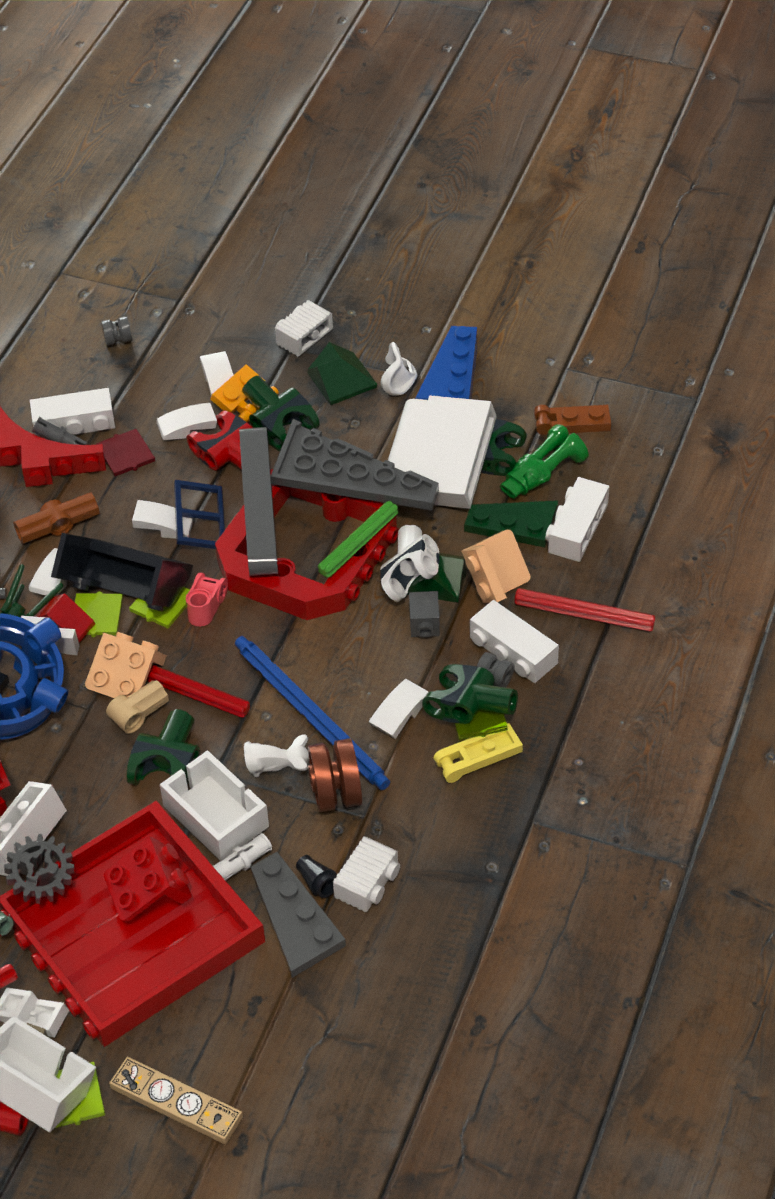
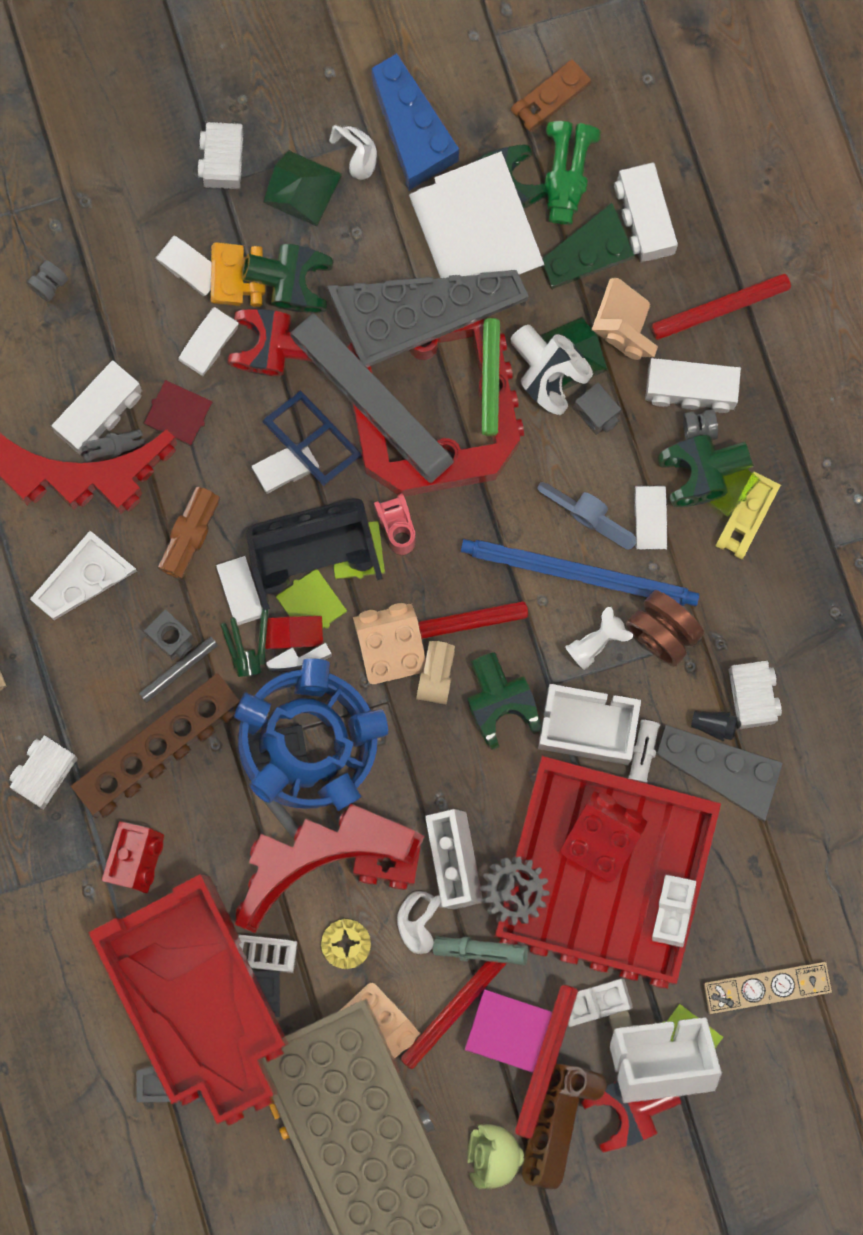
camera: 45 degrees left, 30 degrees up
(154, 970) = (674, 911): none -> white slope
(354, 676) = (590, 513): none -> sand blue piece

